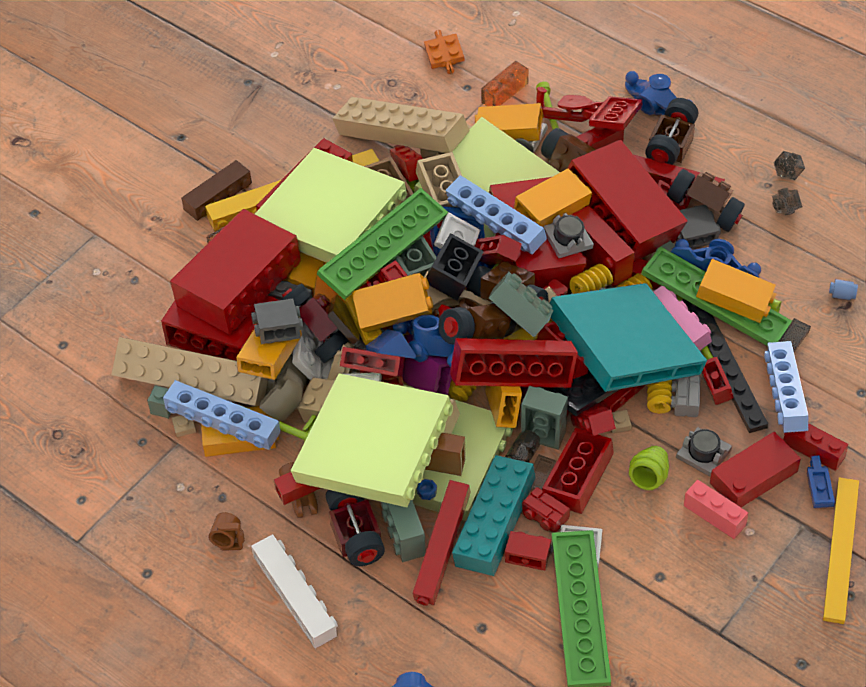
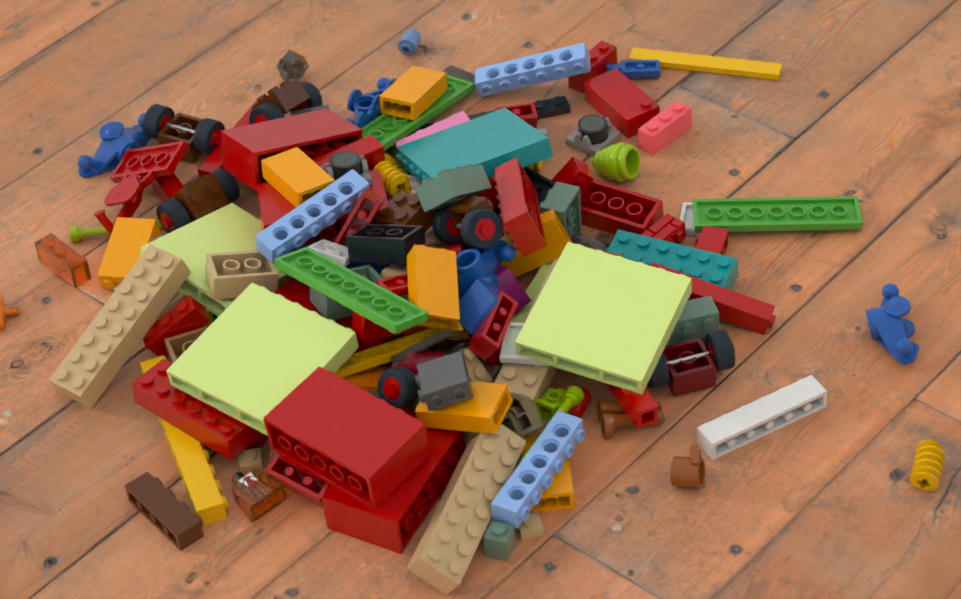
camera: 85 degrees left, 10 degrees down
(789, 165) = (248, 59): clear smoke brick -> none

